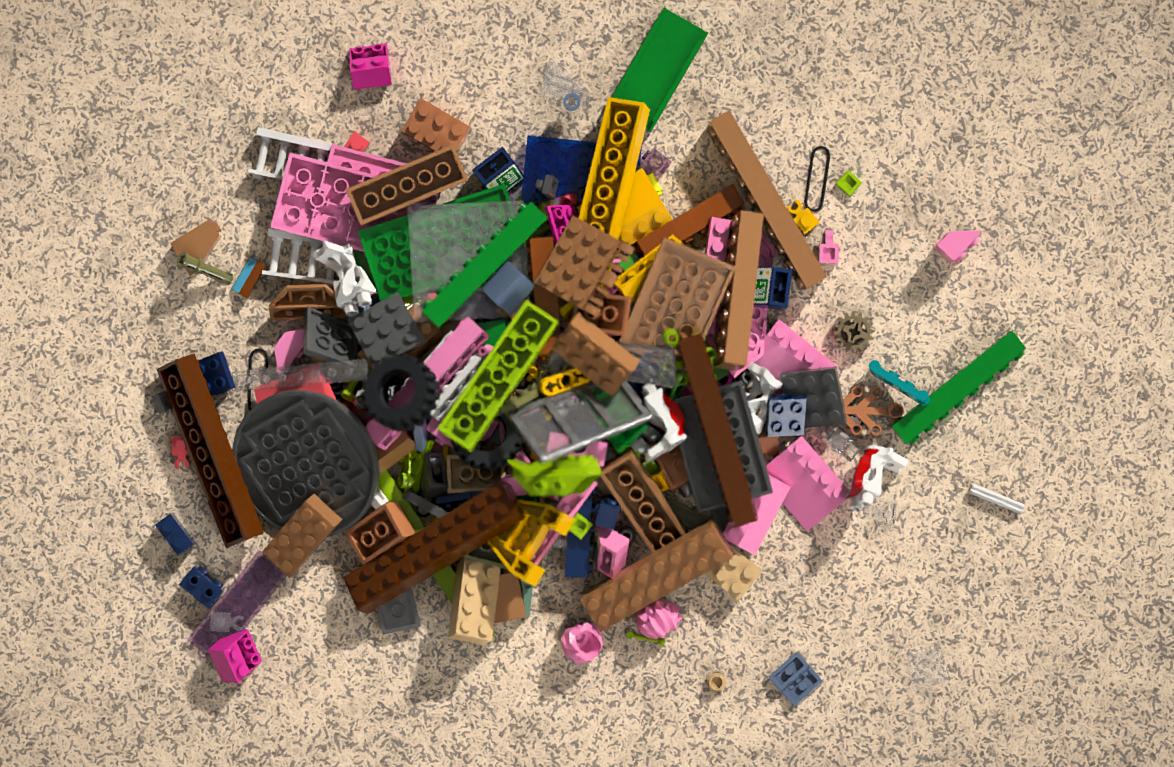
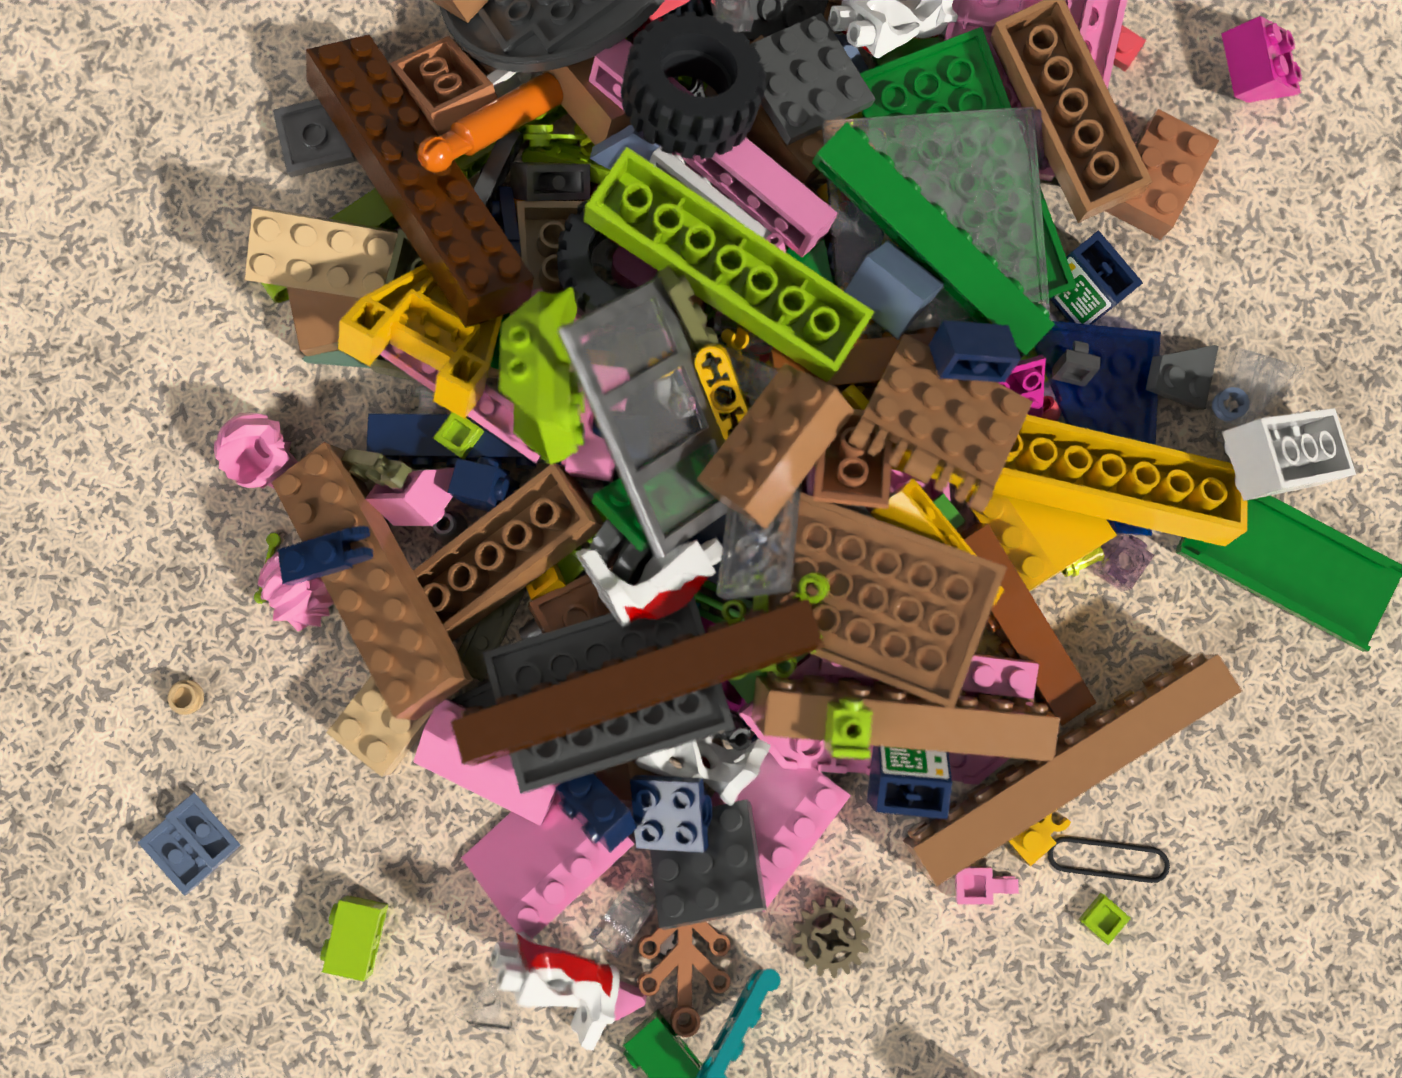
camera: 85 degrees right, 5 degrees down
(407, 505) = (491, 122): none -> orange piece
(547, 247) = (974, 351): none -> dark blue brick
(552, 123) = (1184, 376): none -> dark grey wing
(597, 570) = (376, 467): none -> olive hinge
(601, 74) = (1288, 453): none -> white brick
(644, 598) = (323, 555): none -> dark blue hinge
(738, 326) = (838, 718): none -> lime brick
(782, 454) = (597, 809): none -> dark blue brick
(847, 588) = (353, 937): none -> lime brick
(884, 441) = (628, 1000): none -> bright pink slope

